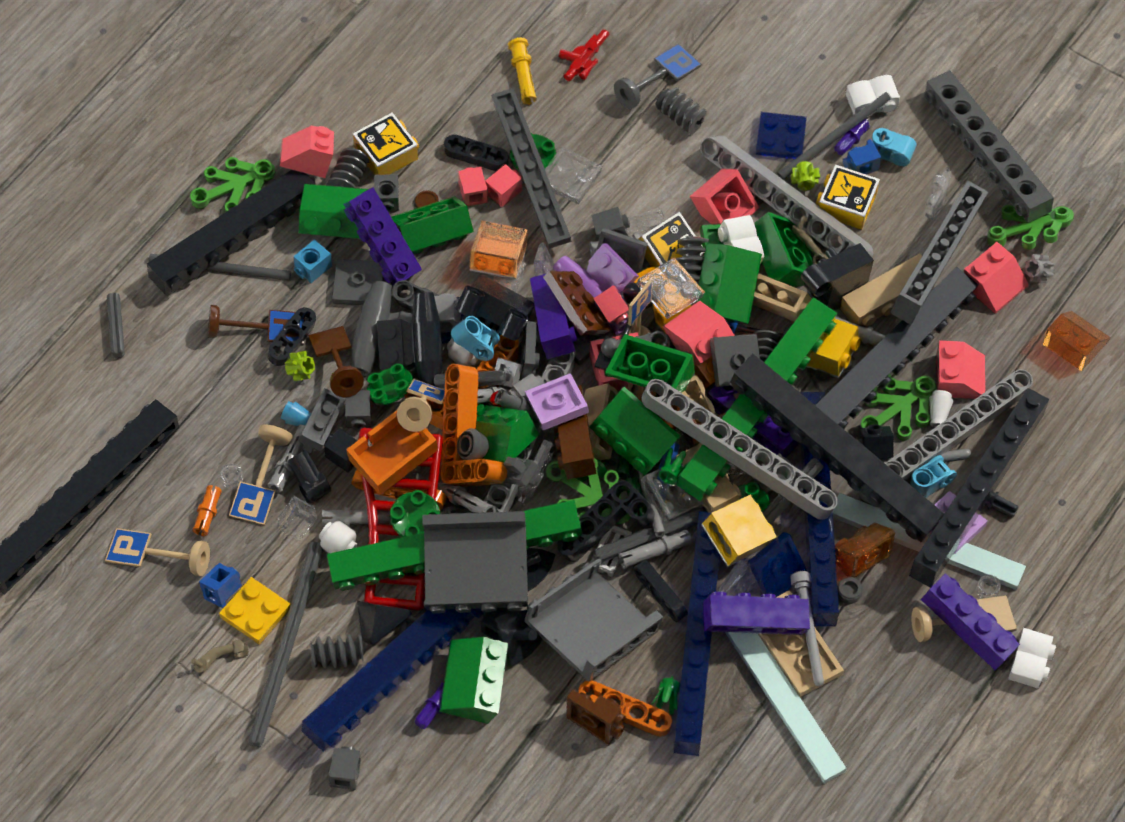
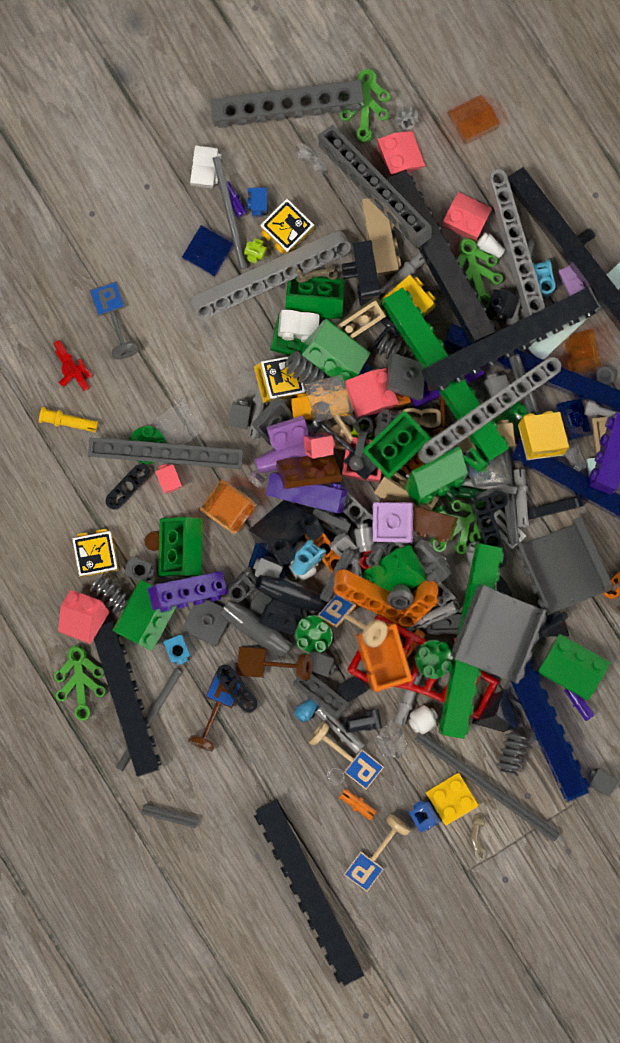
camera: 70 degrees left, 25 degrees up
(299, 366) = (266, 693): lime gear -> none
(473, 186) = (159, 502): coral brick -> none
(680, 109) = (157, 315): dark grey piece -> none
(724, 197) = (250, 319): coral slope -> none
(894, 147) = (258, 171): medium azure piece -> none

